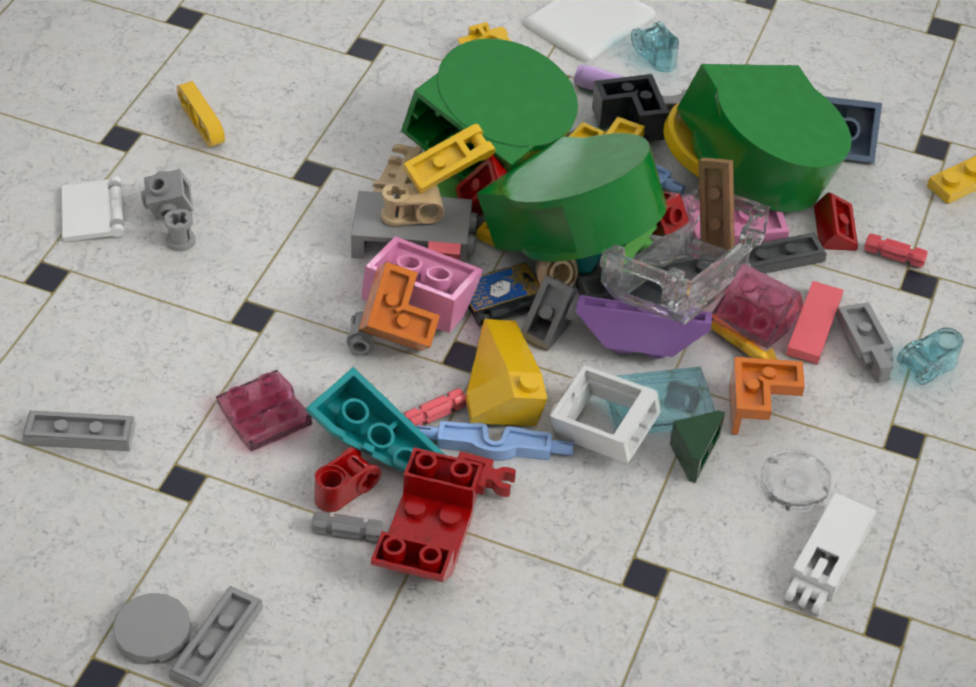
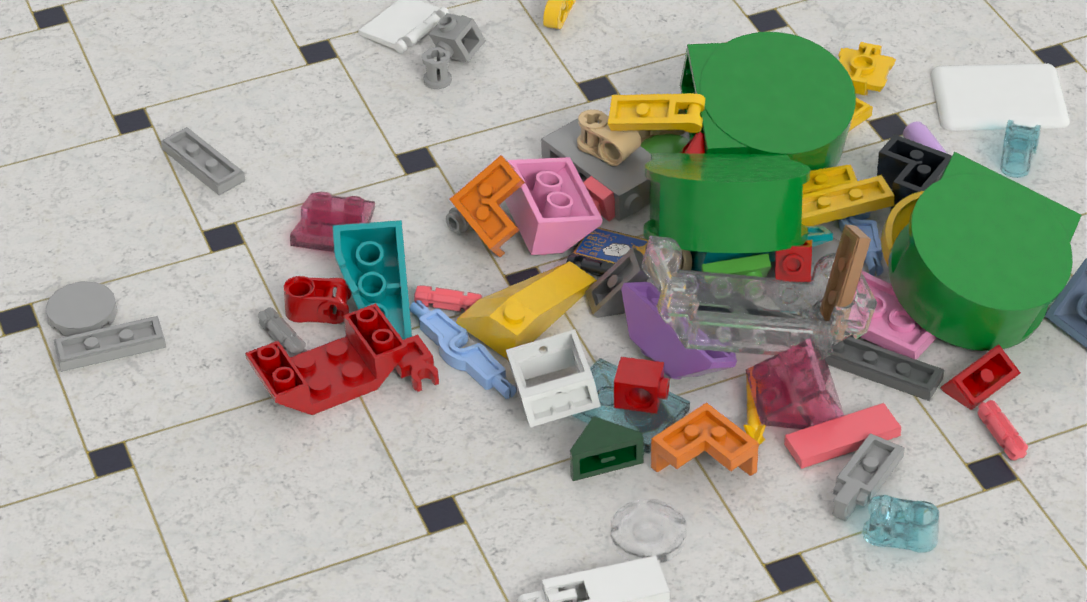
camera: 50 degrees right, 5 degrees down
(670, 375) = (640, 385): none -> red brick

